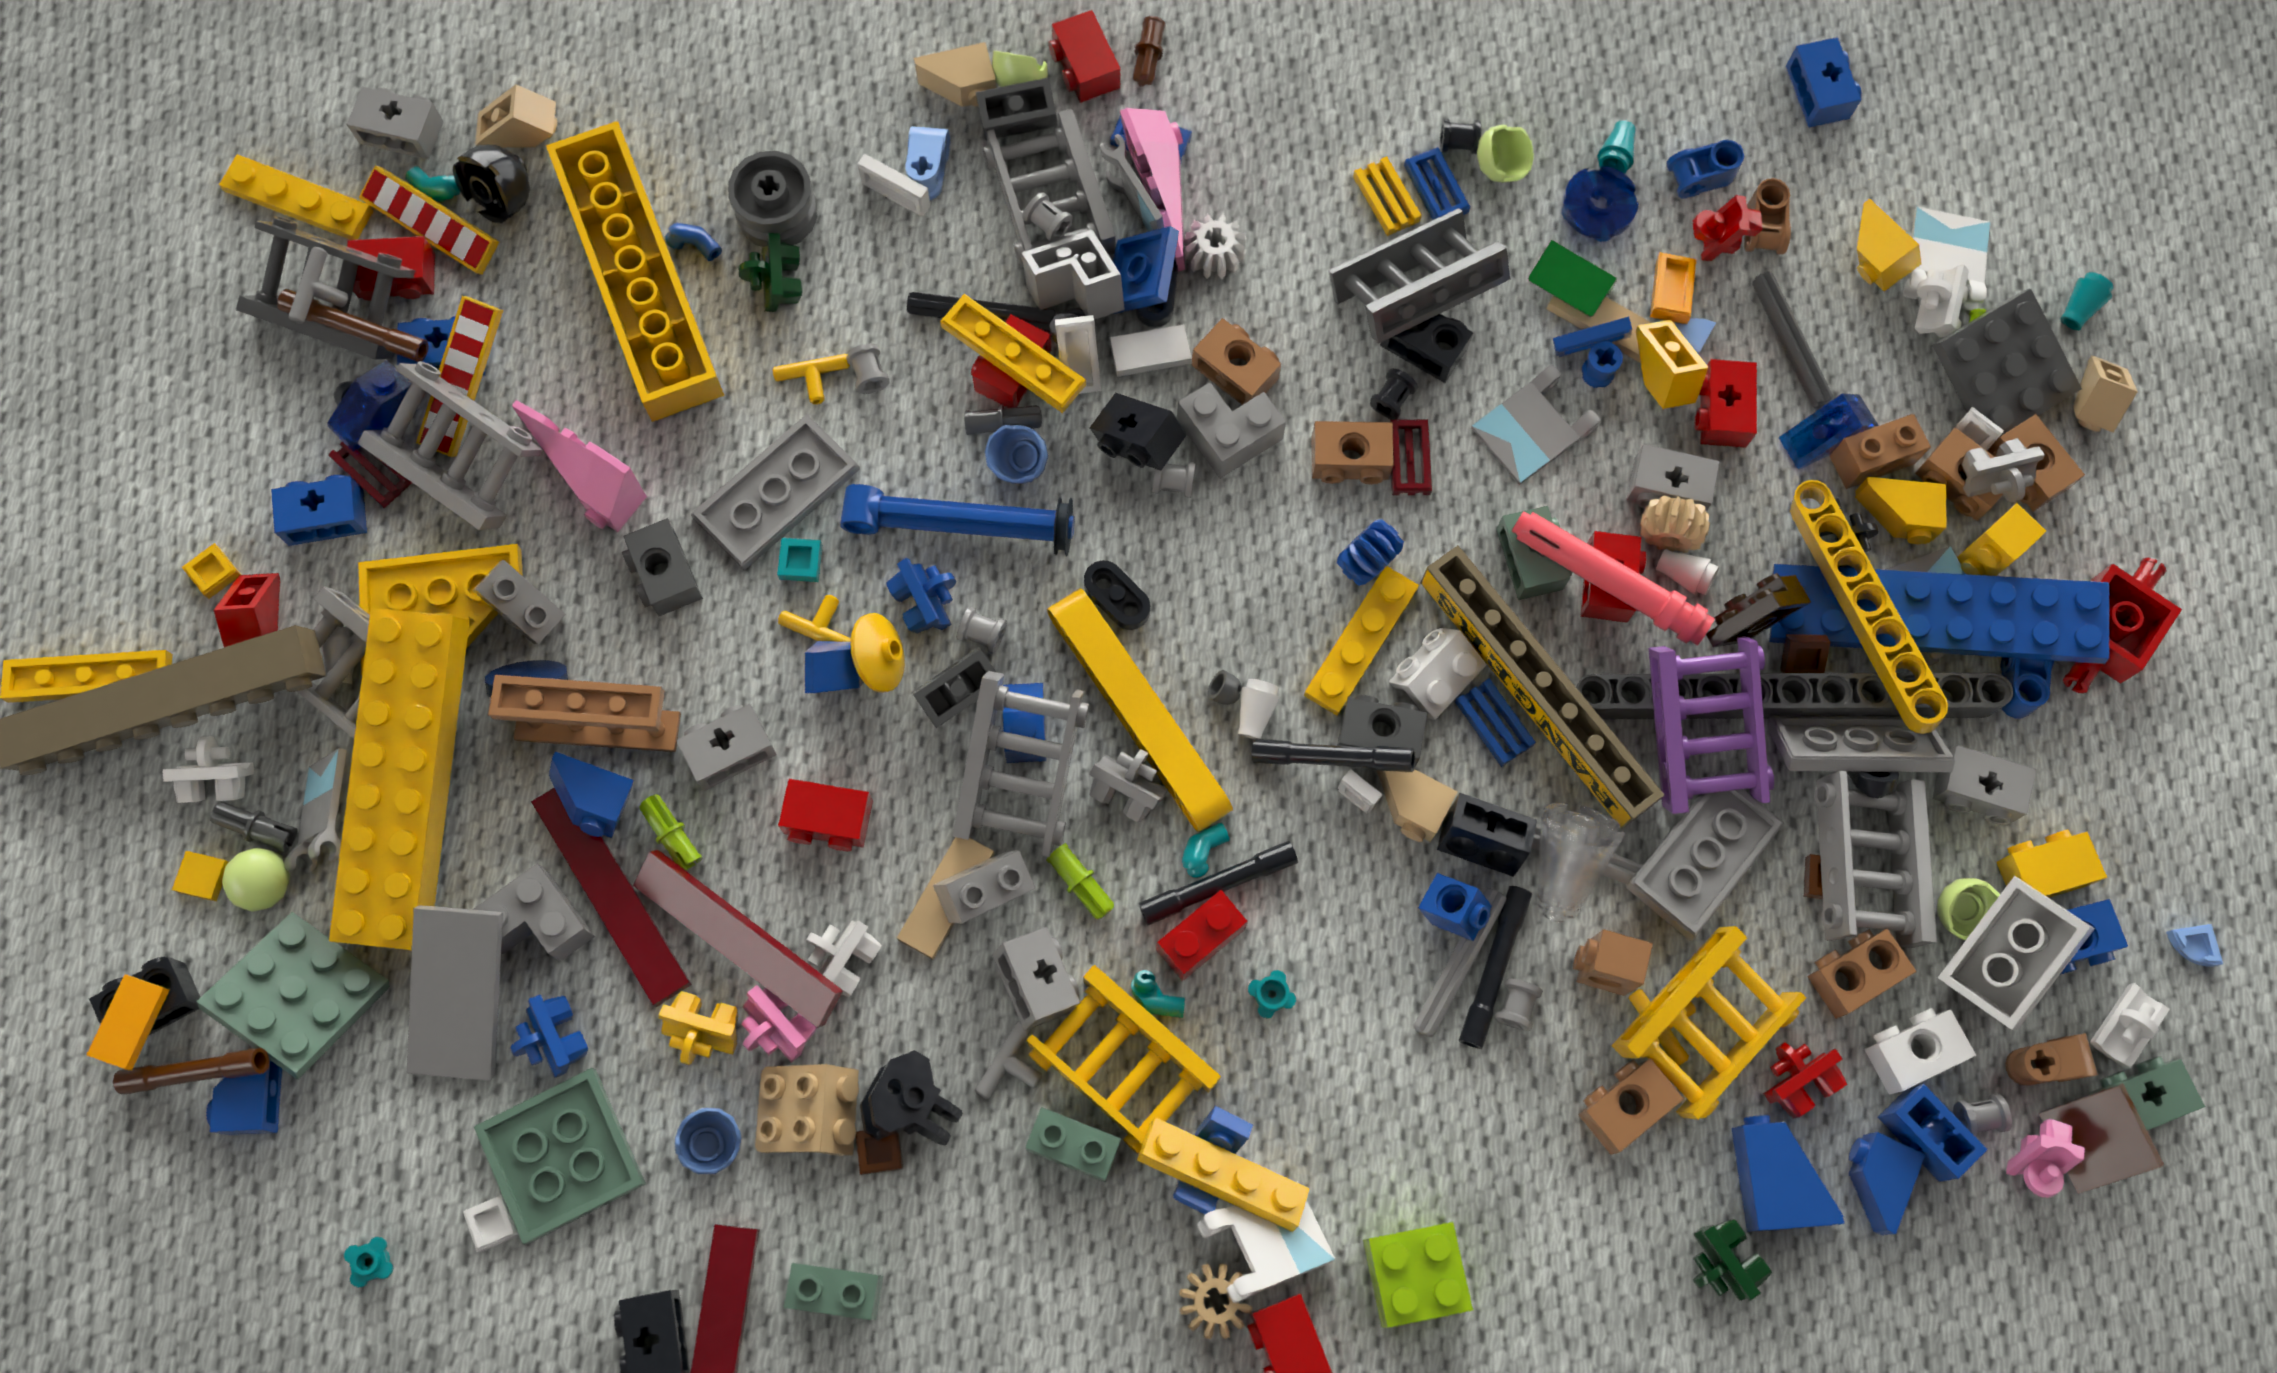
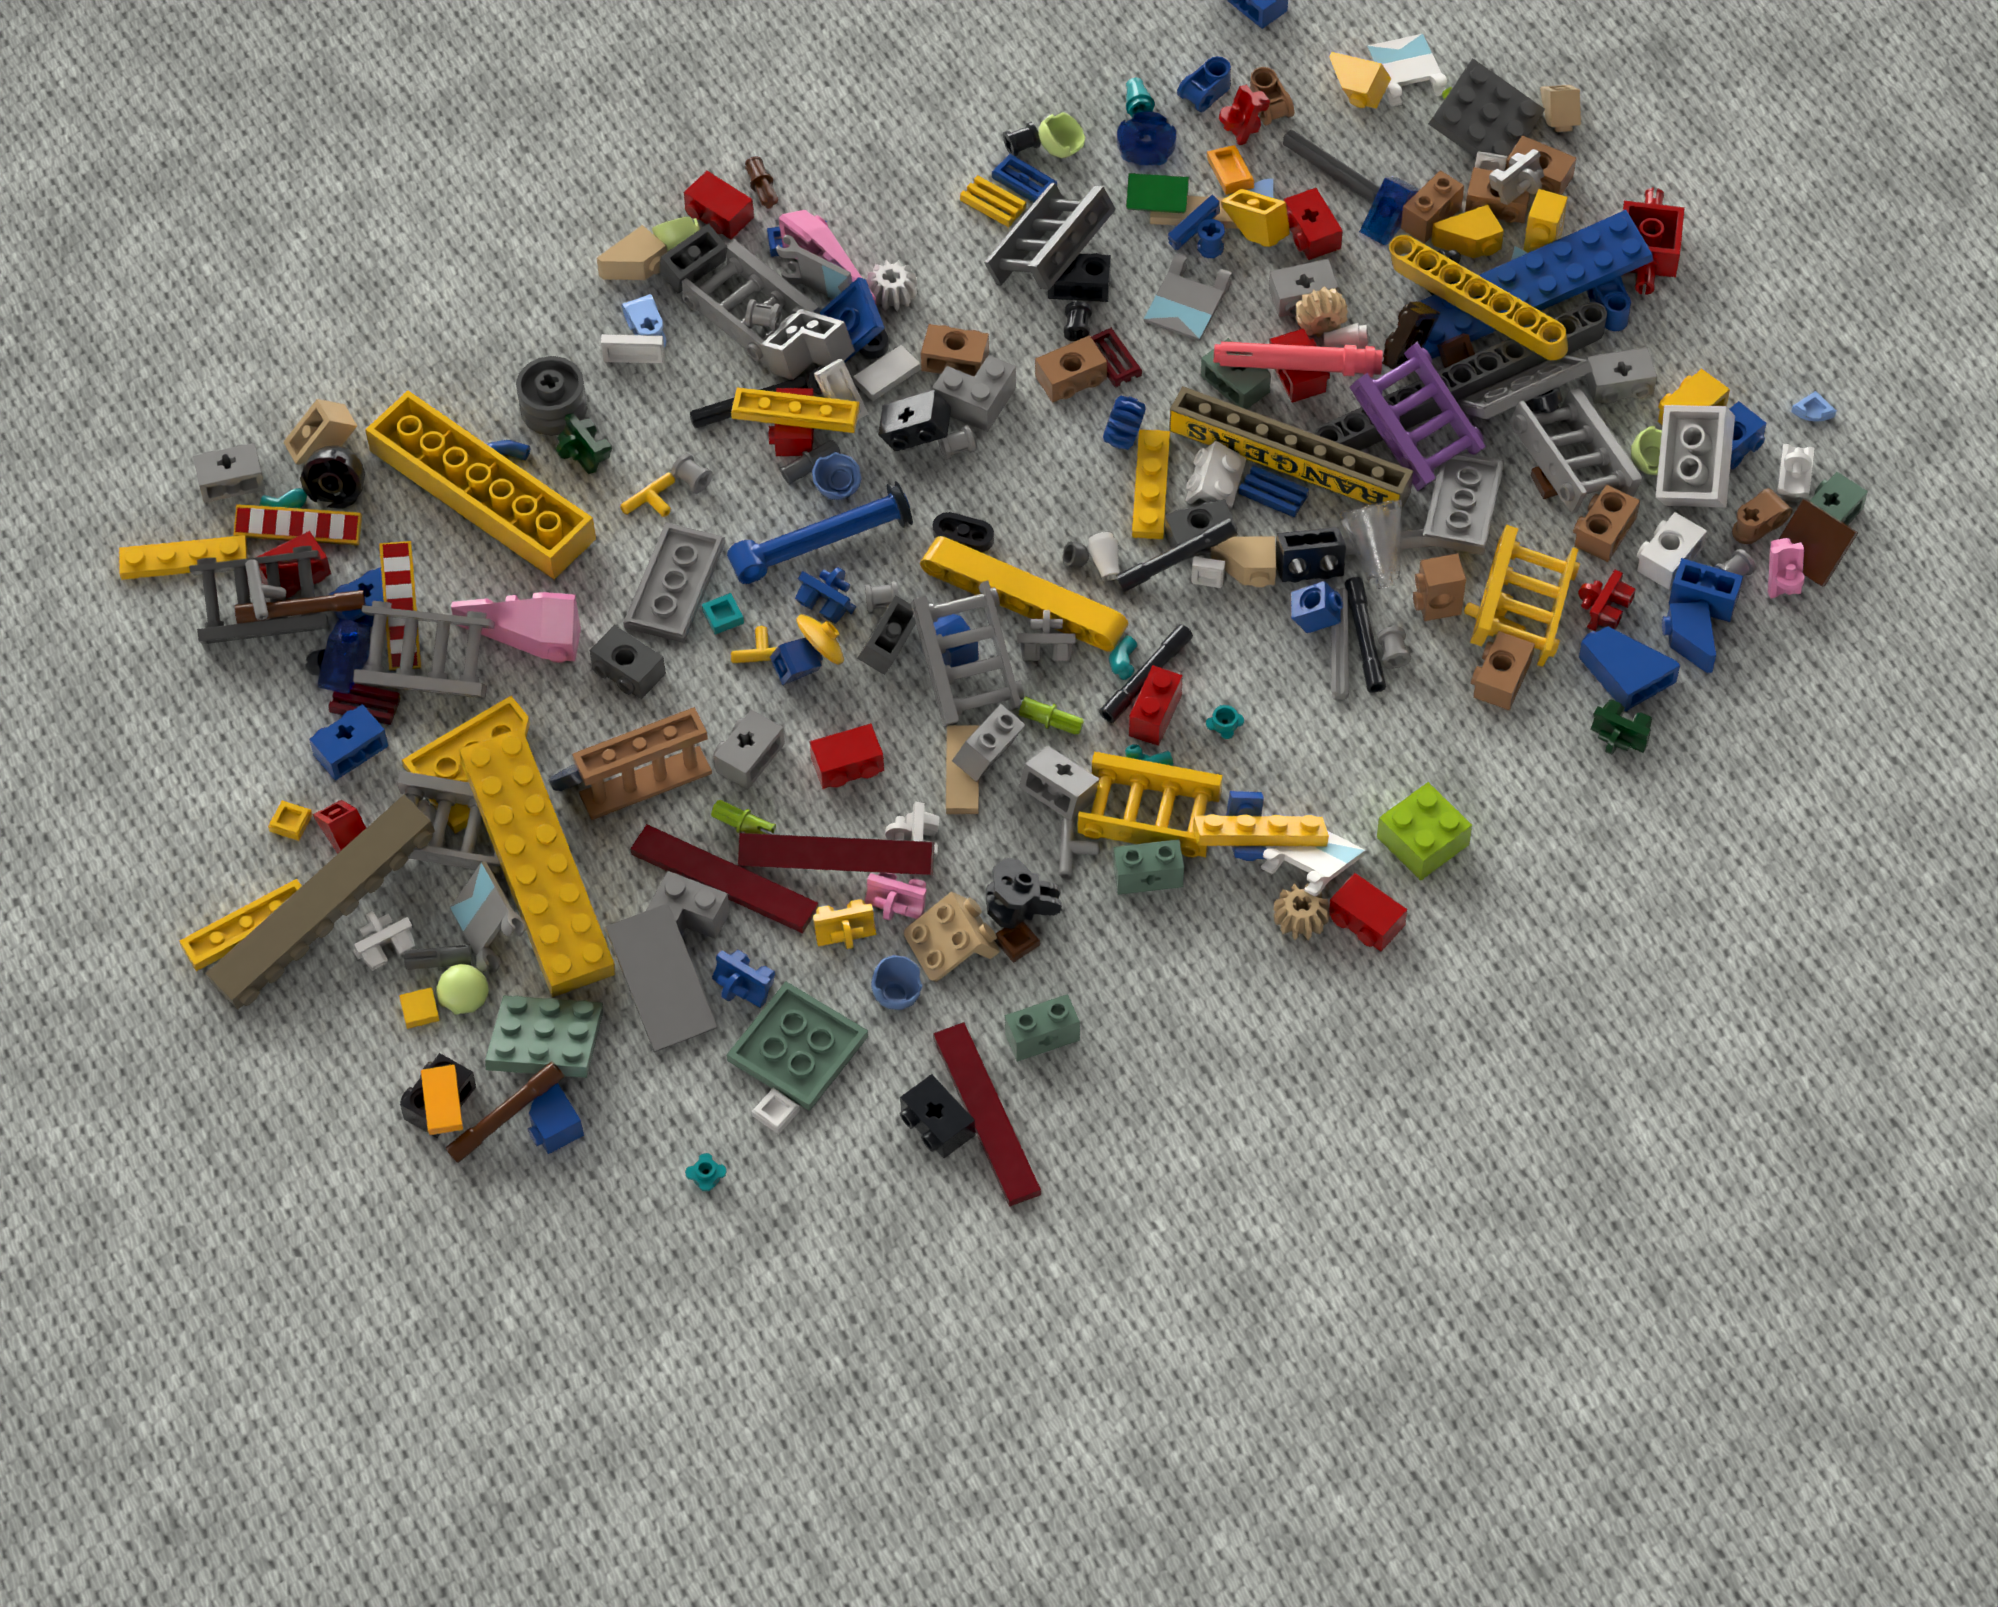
camera: 25 degrees left, 15 degrees down
(519, 602) = (544, 724): light grey brick -> none
(590, 794) = (671, 818): blue slope -> none
(1941, 300) = (1418, 95): white hips -> none
(2086, 299) = (1516, 51): teal cone -> none

